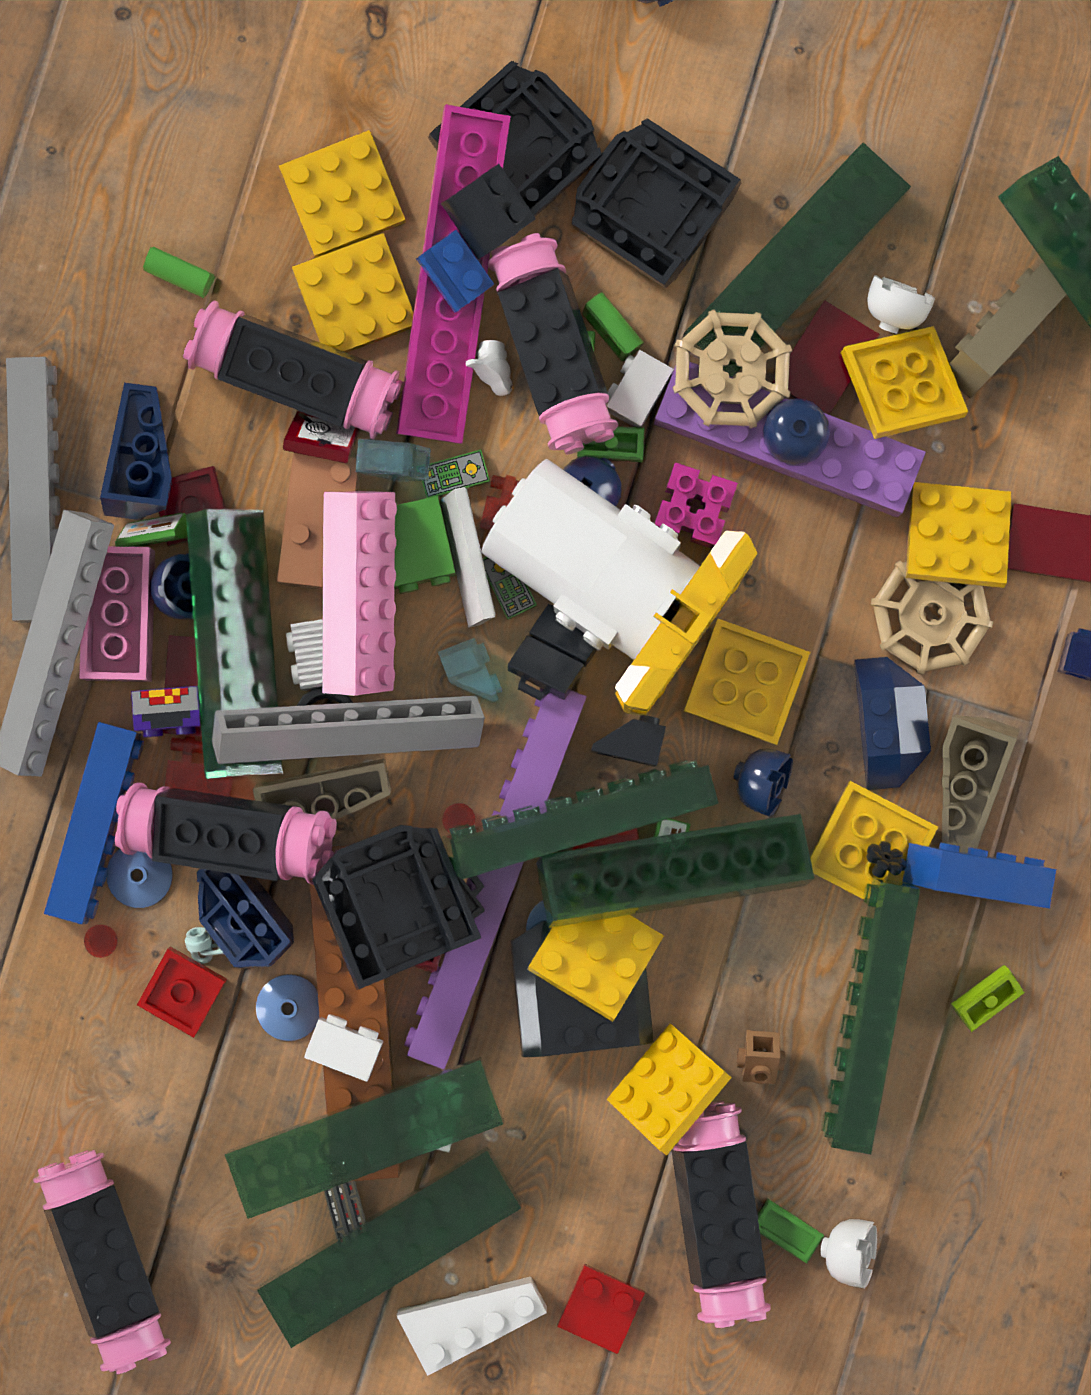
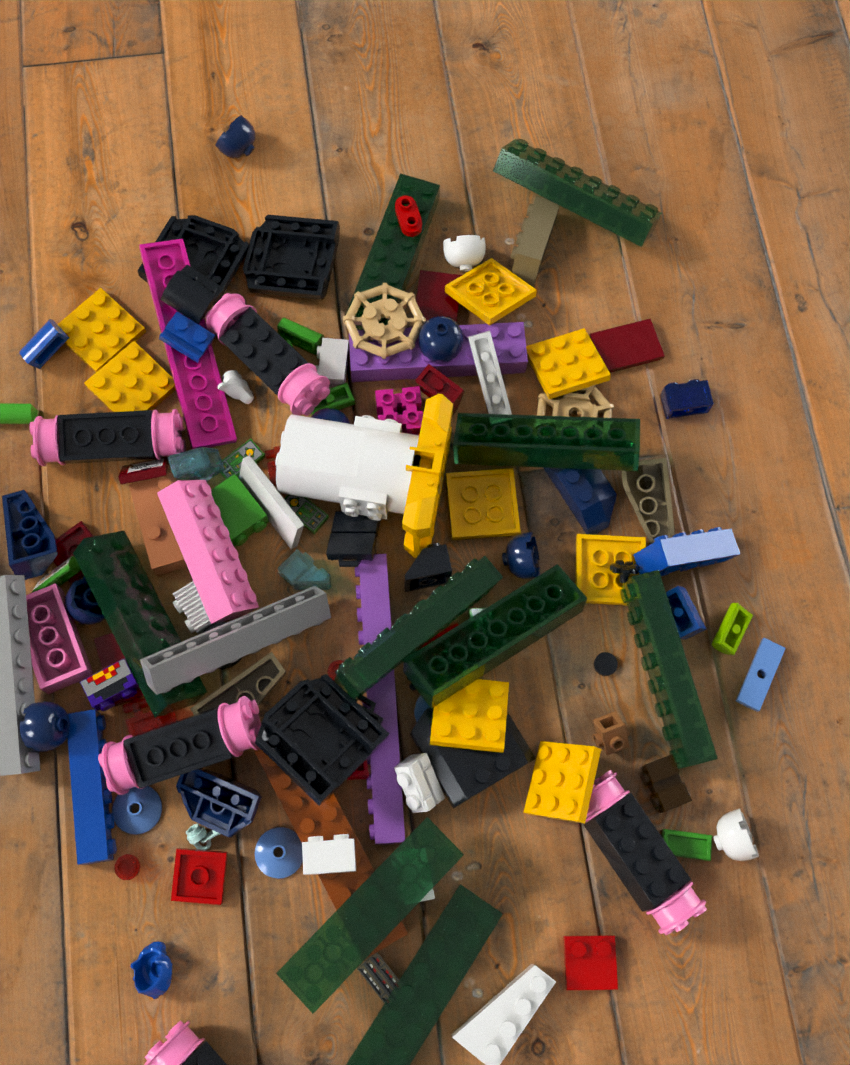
camera: 30 degrees left, 15 degrees down
(68, 729) = (44, 726): none -> dark blue cylinder
(84, 1076) = (152, 970): none -> blue hair
(259, 186) = (43, 344): none -> blue brick
(493, 1008) = (419, 783): none -> white brick
(763, 498) = (434, 382): none -> dark red tile
(798, 1148) = (665, 784): none -> dark brown brick
(802, 965) = (605, 664): none -> black piece
(839, 513) = (489, 373): none -> white plate
(840, 220) = (408, 214): none -> red plate
(869, 643) = (547, 441): none -> clear green brick
(932, 949) = (684, 613): none -> blue brick
(1010, 1059) = (766, 662): none -> medium blue tile

